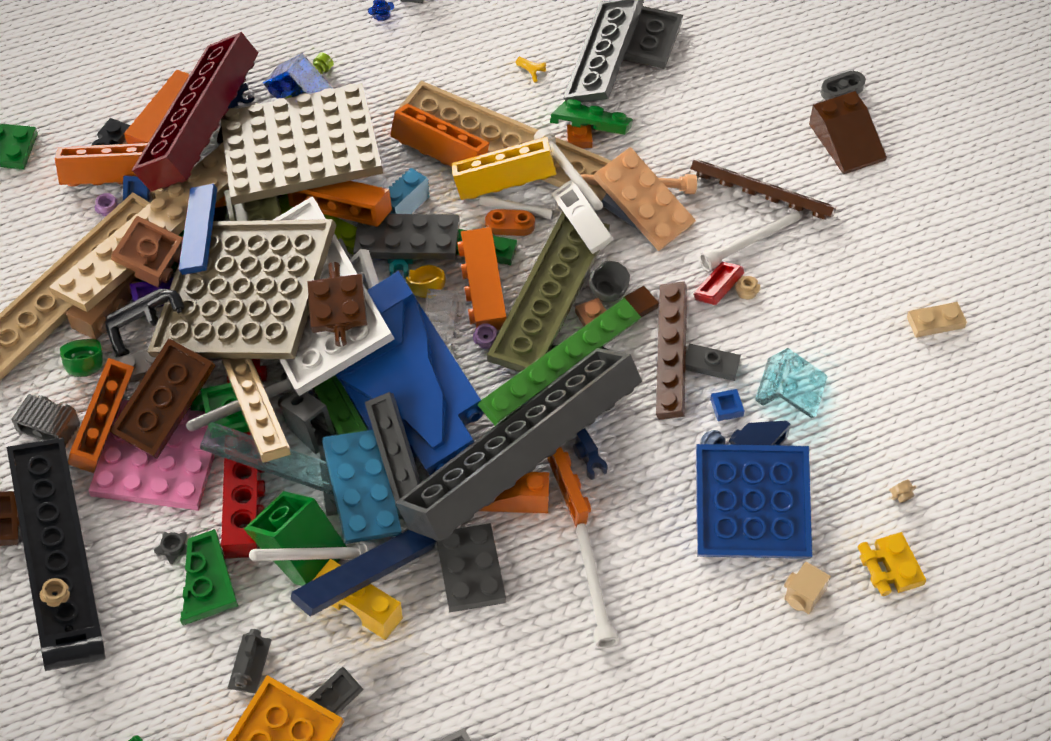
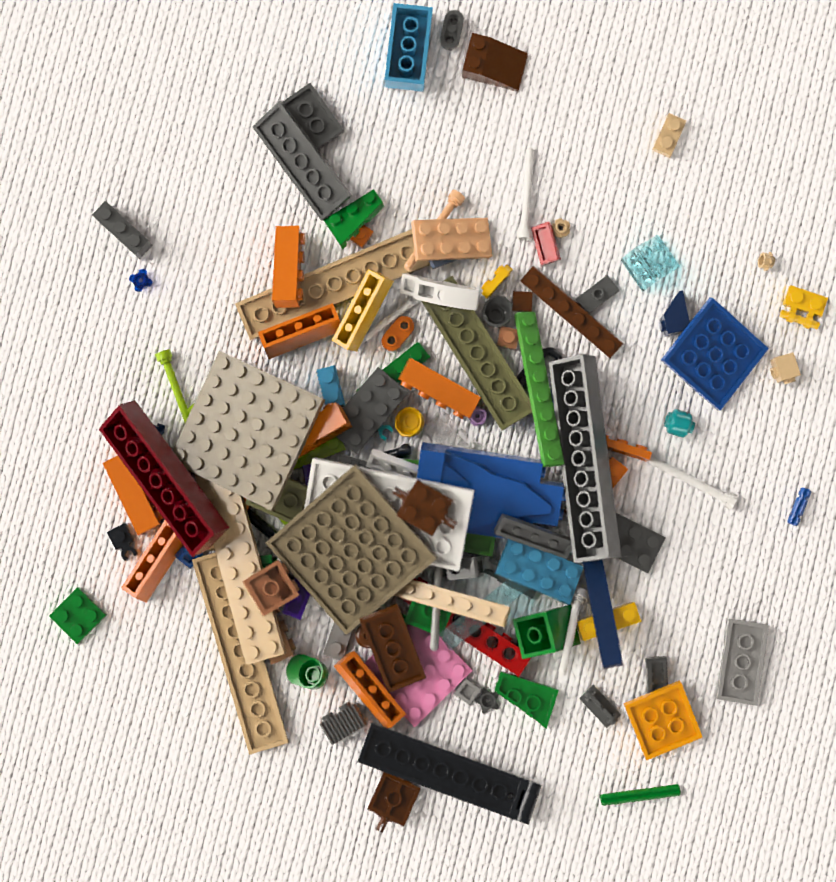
camera: 50 degrees left, 30 degrees up
(51, 586) = (487, 799): tan plate -> none
(105, 204) = (186, 576): lavender plate -> none
(136, 310) = (308, 618): black piece -> none
(169, 518) = (467, 691): none -> light grey tile
(198, 229) = (277, 545): tile -> none
(295, 78) = (176, 389): clear blue brick -> none
(492, 92) = (287, 267): none -> orange brick
(531, 67) = (275, 219): yellow bar -> none
(569, 169) = (358, 264): white piece -> none
(588, 451) = (613, 419): dark blue plate -> none
(642, 264) = (490, 287): none -> yellow plate
(646, 521) = (679, 423): none -> teal head
(664, 718) = (799, 506): none -> blue axle
(713, 437) = (653, 341): sand blue plate -> none
(727, 405) = (635, 312): blue plate -> none
(772, 192) = (496, 154): reddish brown plate -> none
(790, 60) = (408, 47): none -> dark azure brick

